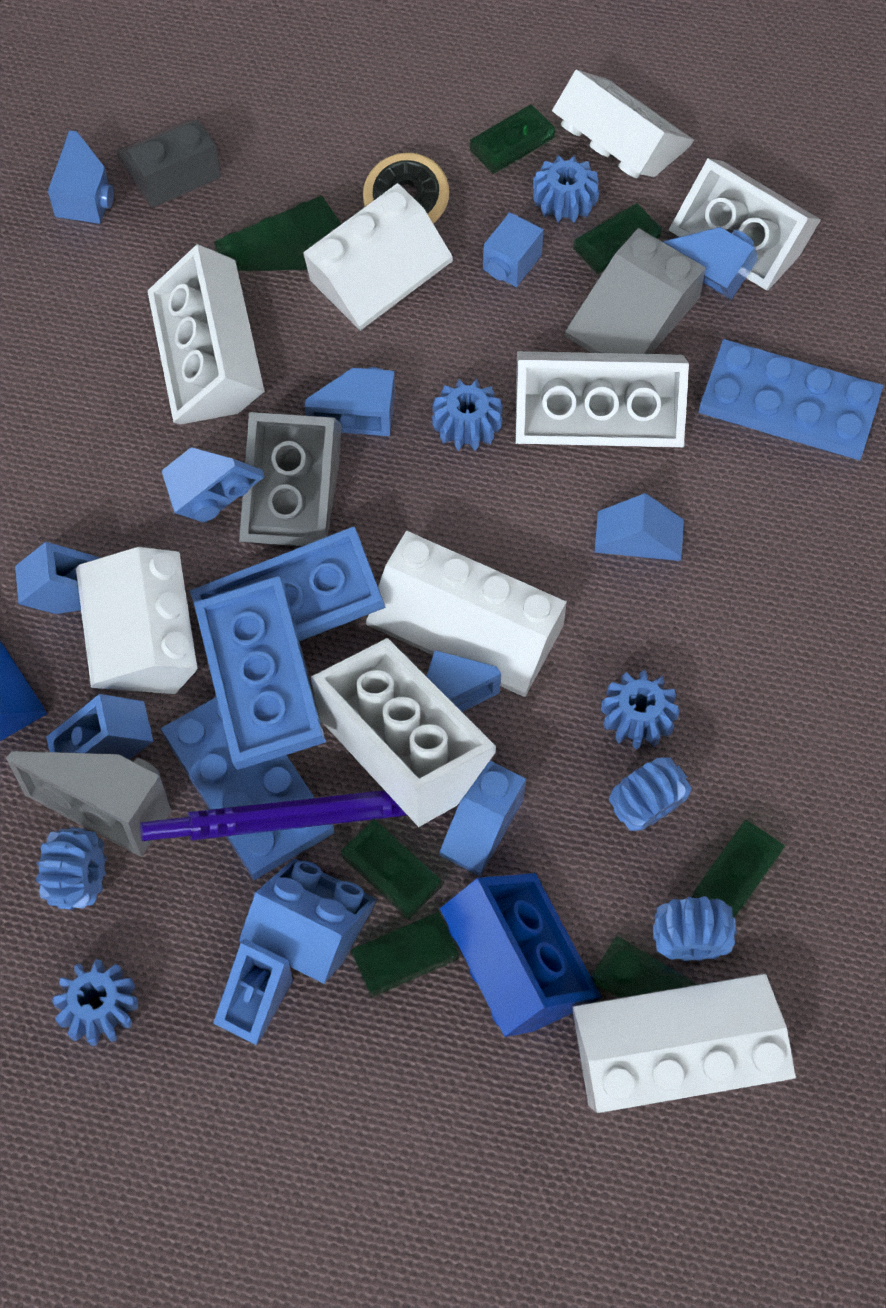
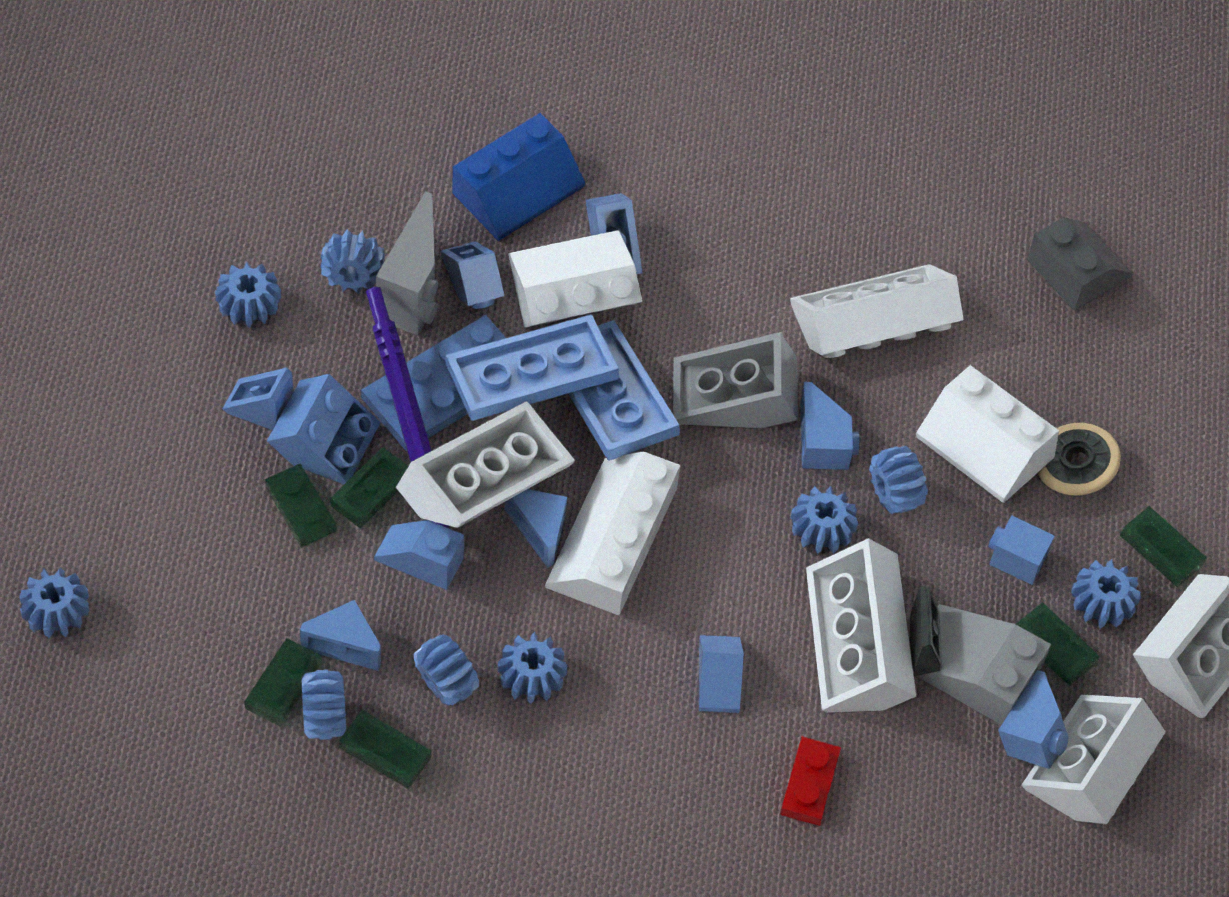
camera: 80 degrees right, 5 degrees down
(80, 183) = (1036, 194): medium blue slope -> none
(207, 482) = (716, 317): medium blue slope -> none
(280, 239) = (999, 356): clear green slope -> none
(430, 338) = (898, 479): none -> medium blue gear
(518, 952) = (302, 581): blue slope -> none
(554, 1266) = (58, 588): none -> medium blue gear
(591, 904) = (343, 636): none -> medium blue slope
(612, 336) = (925, 634): none -> pearl dark grey slope
(682, 1043) = (224, 697): white slope -> none
(766, 464) = (810, 781): none -> red plate
(791, 399) = (890, 805): medium blue plate -> none

